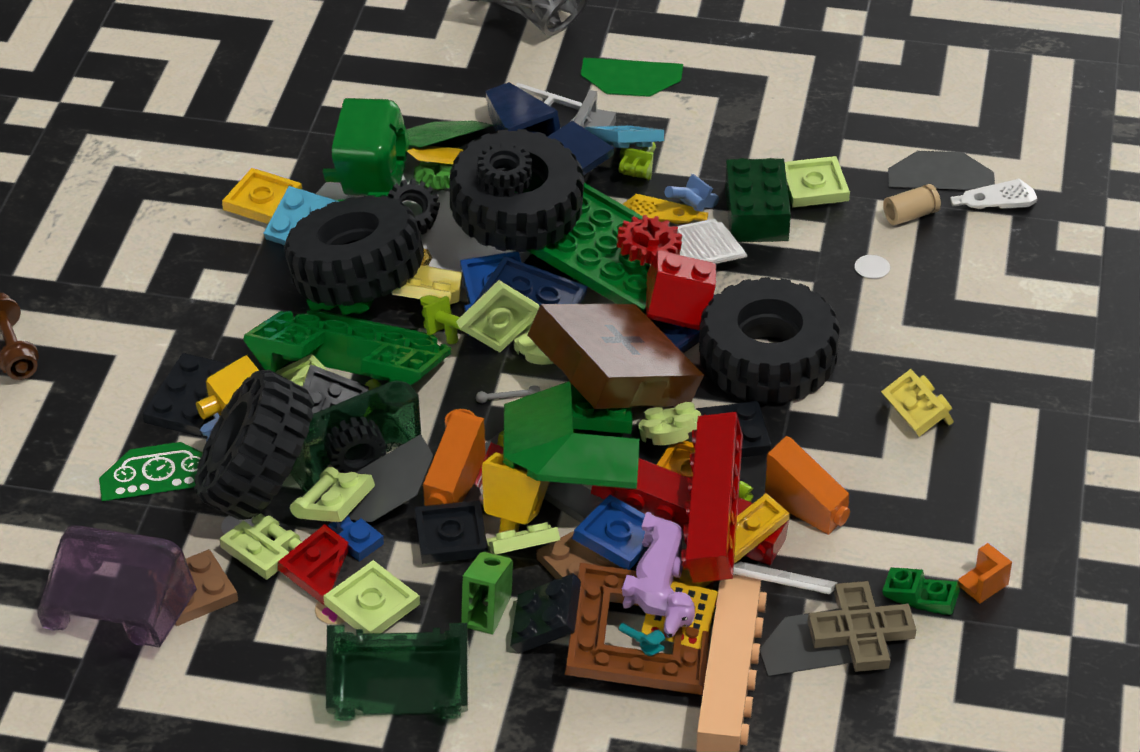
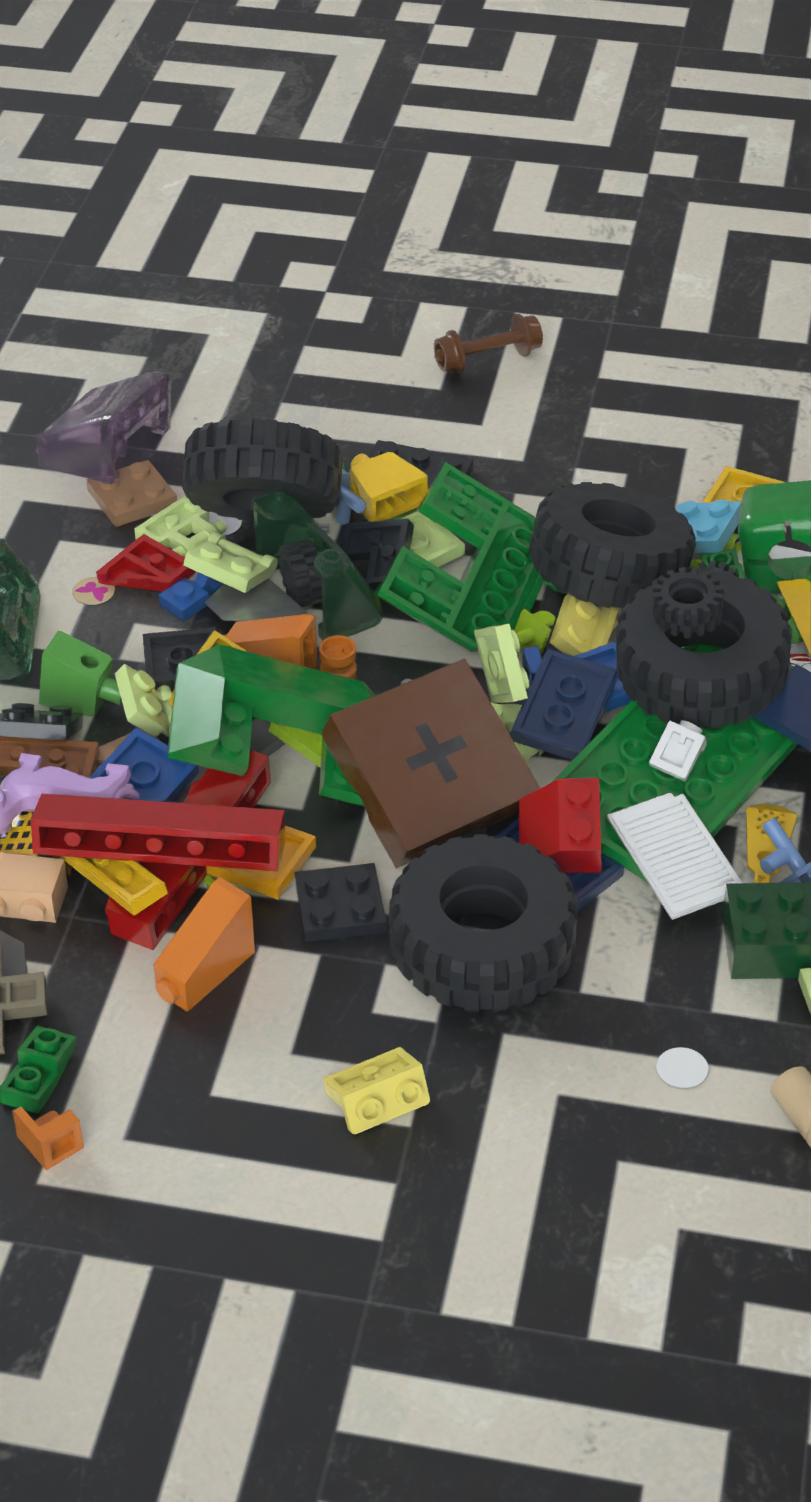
camera: 90 degrees right, 0 degrees up
(371, 599) = (87, 605): yellowish green plate -> none
(601, 223) = (678, 749): none -> white bracket
(645, 237) = (648, 791): red gear -> none
(670, 424) = (335, 831): yellowish green plate -> none
(784, 577) = (85, 942): white window -> none

